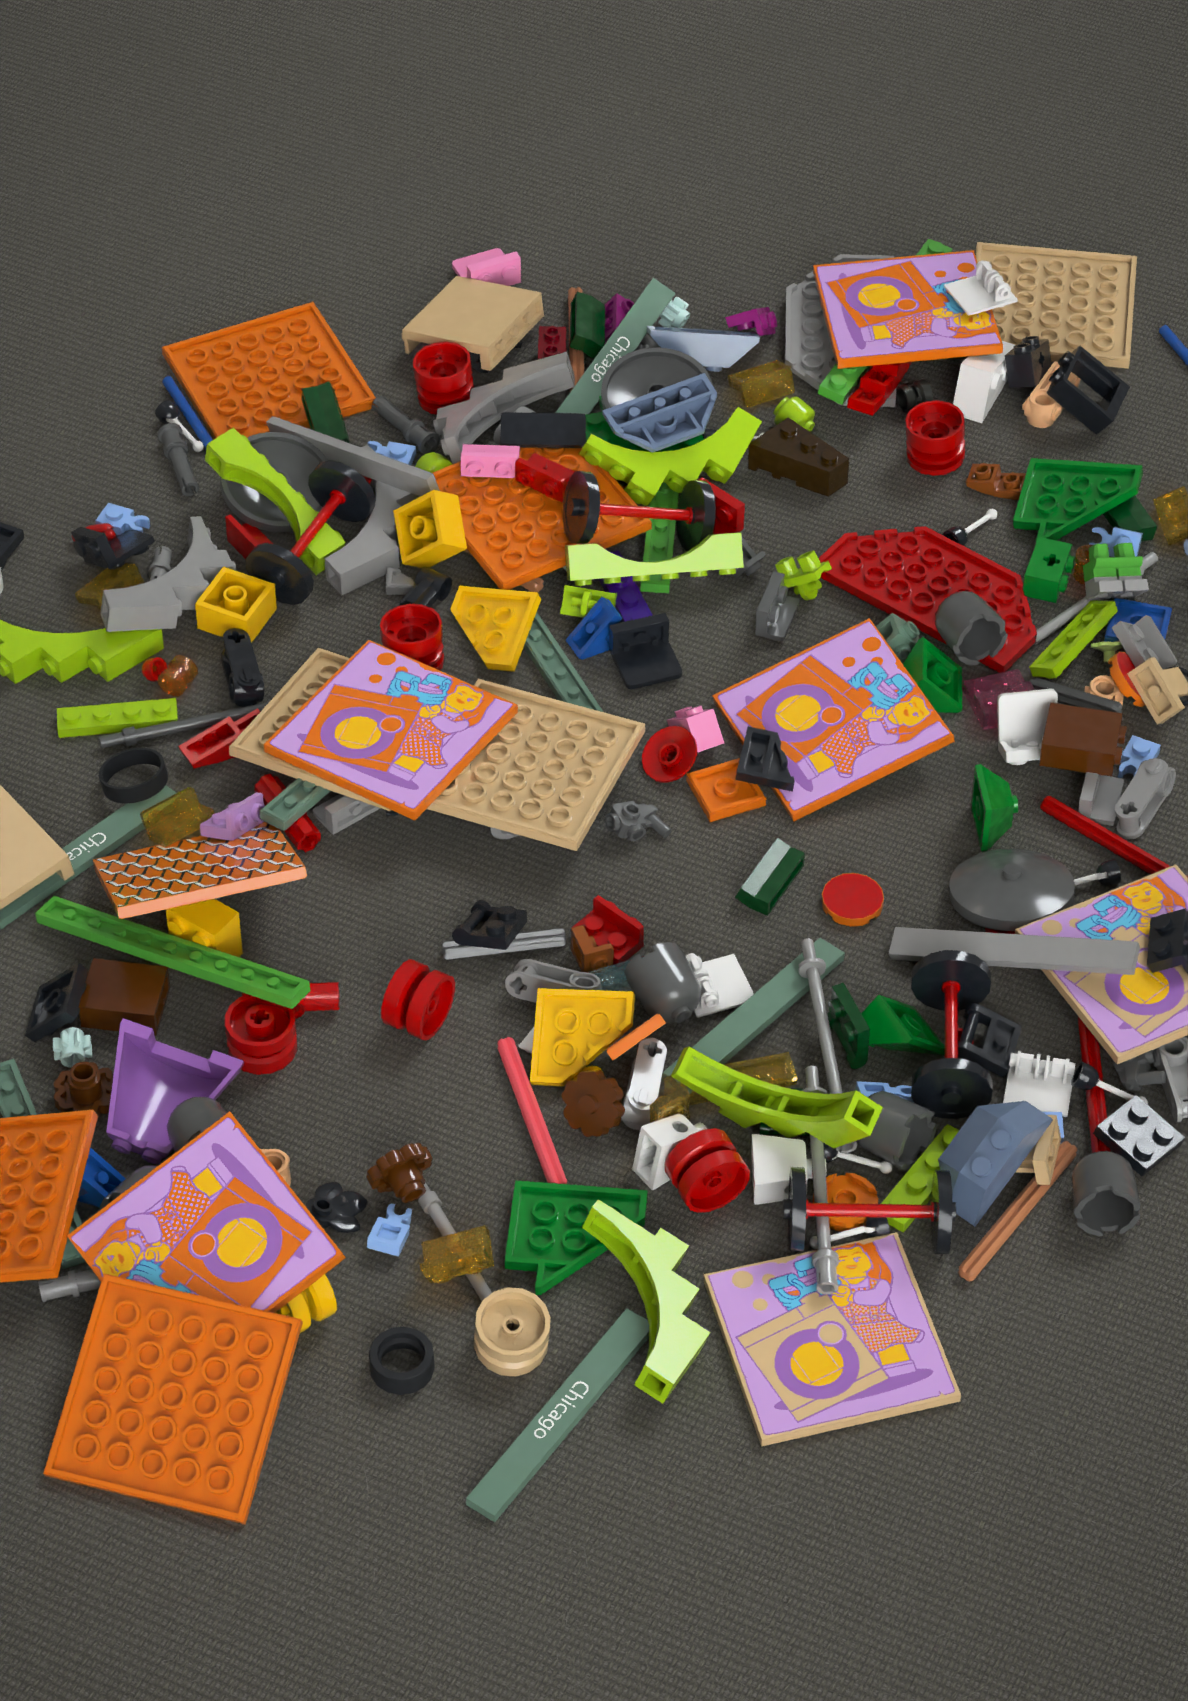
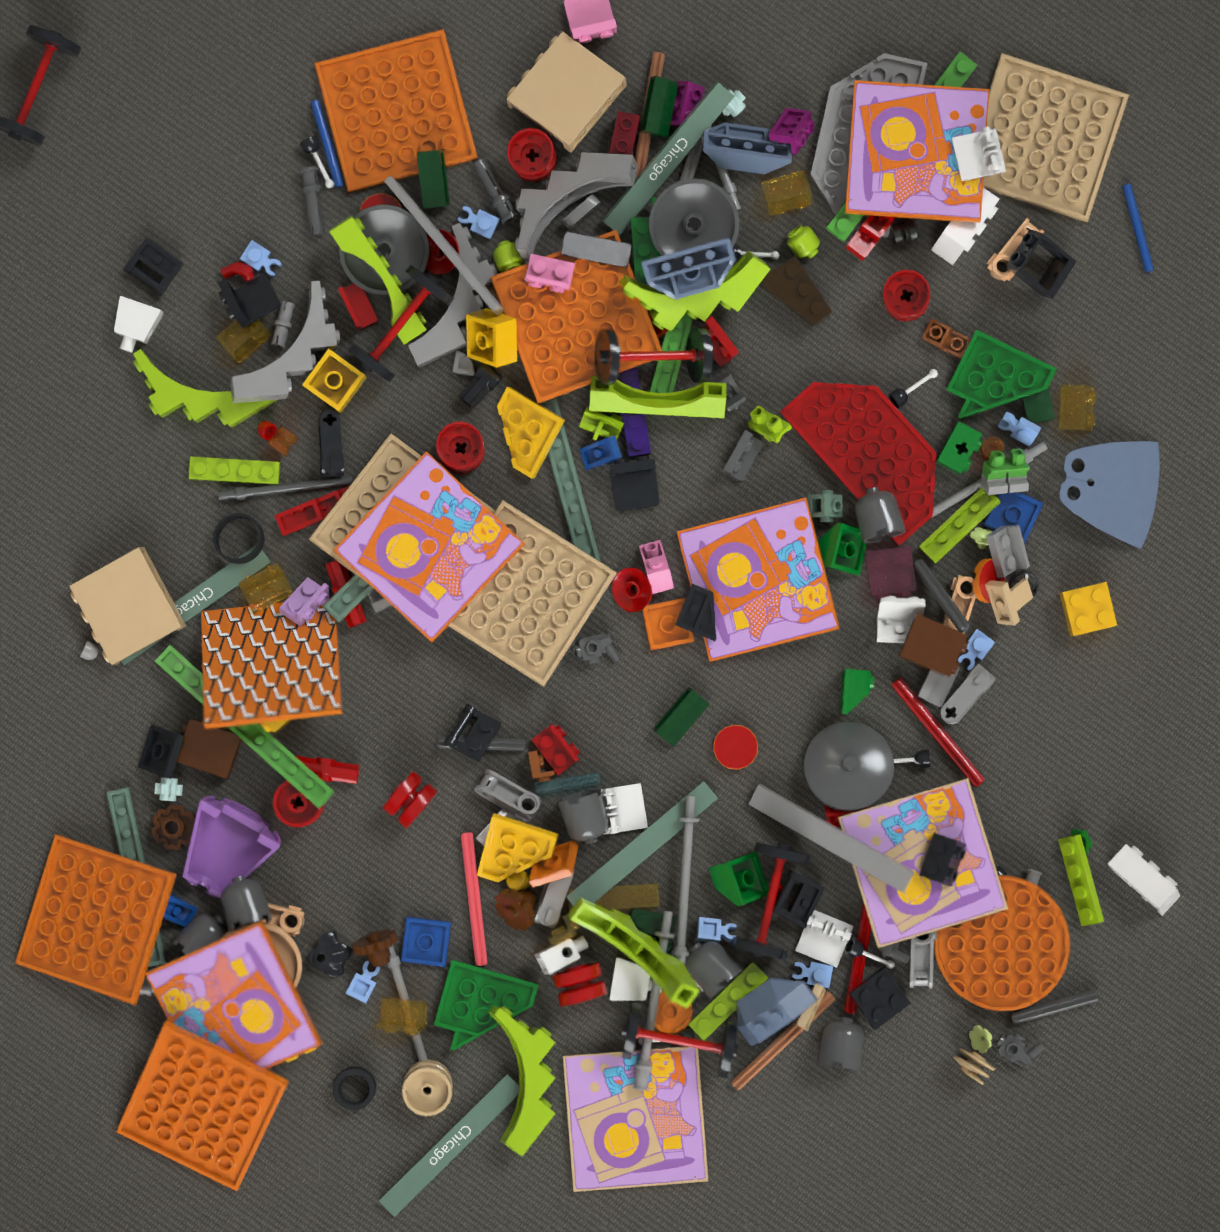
camera: 15 degrees right, 40 degrees up
(472, 1174) = (426, 941): none -> blue tile
(543, 476) = (591, 299): red bracket -> none
(849, 1026) = (700, 867): dark green plate -> none
(1028, 362) = (1002, 223): black brick -> none

